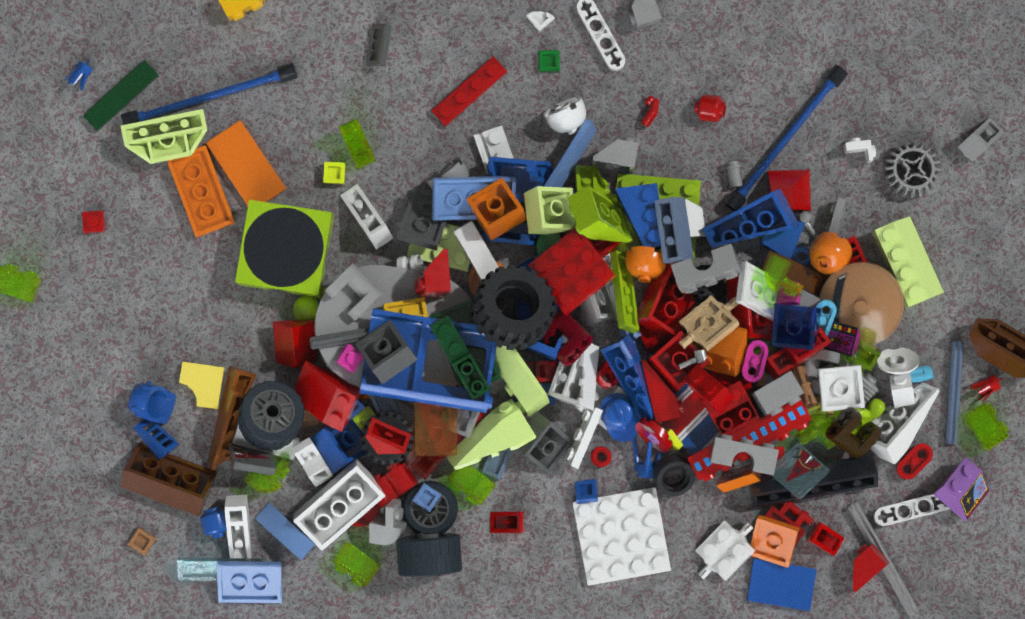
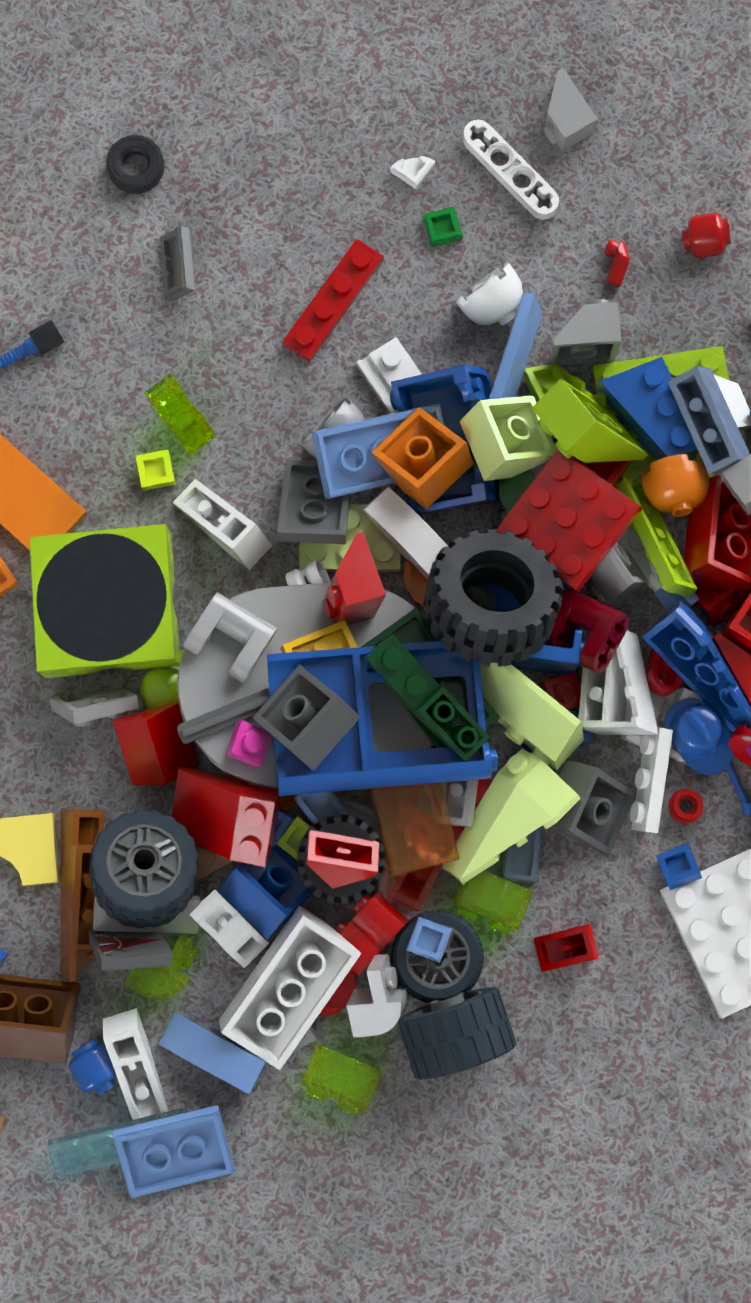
camera: 10 degrees left, 5 degrees down
(264, 310) = (95, 705): none -> light grey wing

